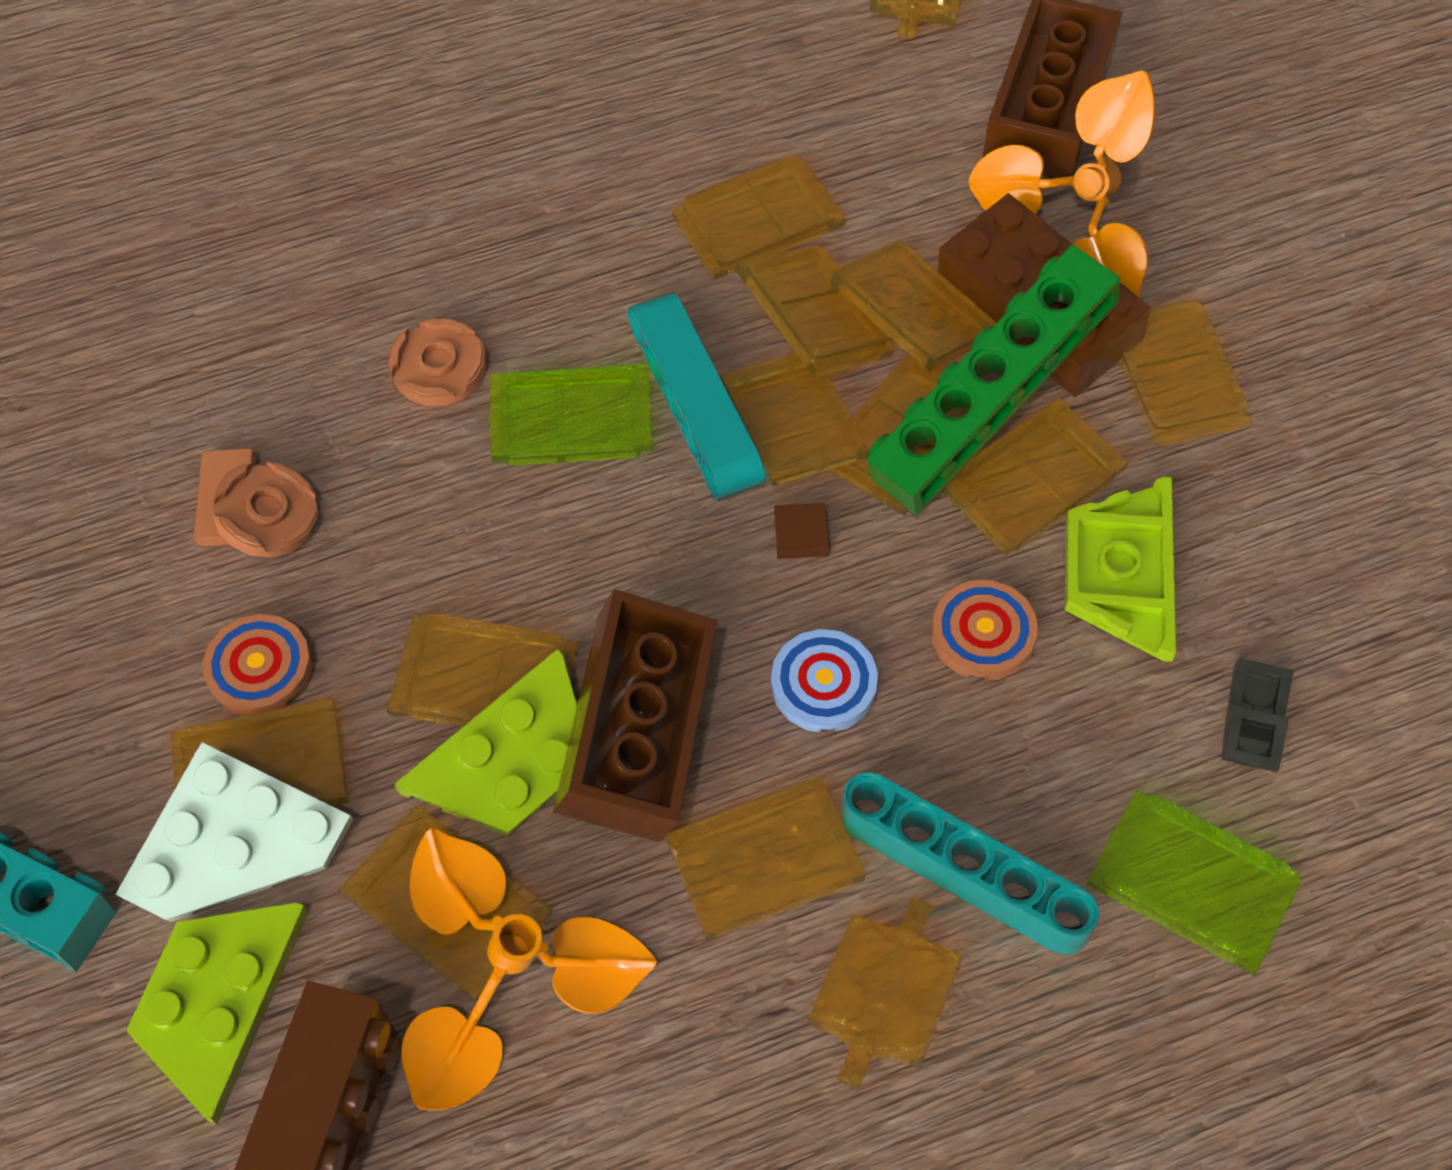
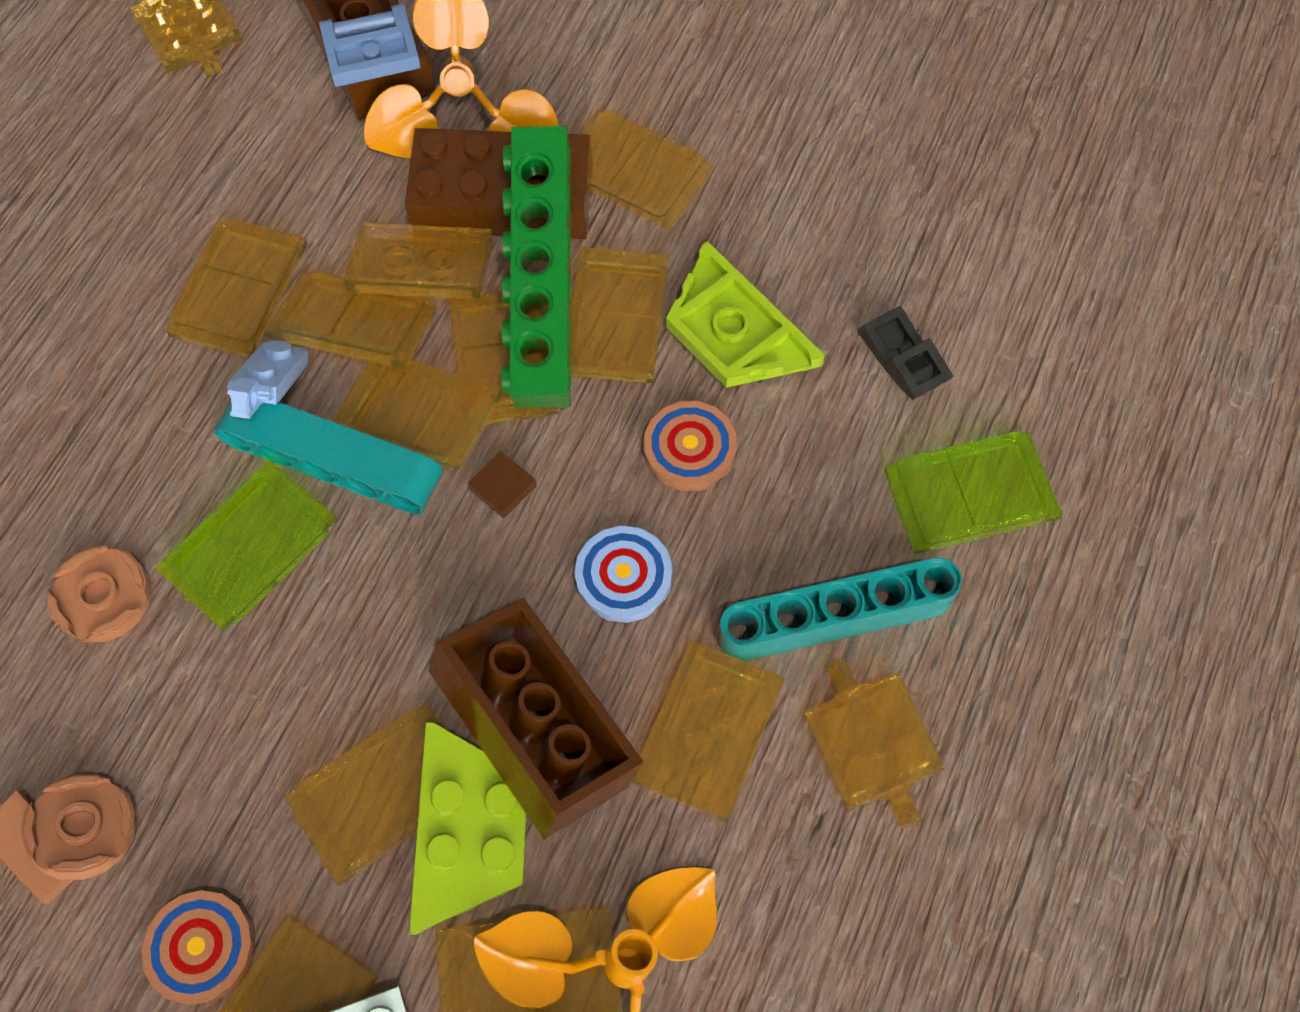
camera: 45 degrees left, 5 degrees up
(702, 297) = (265, 376): none -> light blue hinge
(1032, 99) = (369, 46): none -> medium blue plate

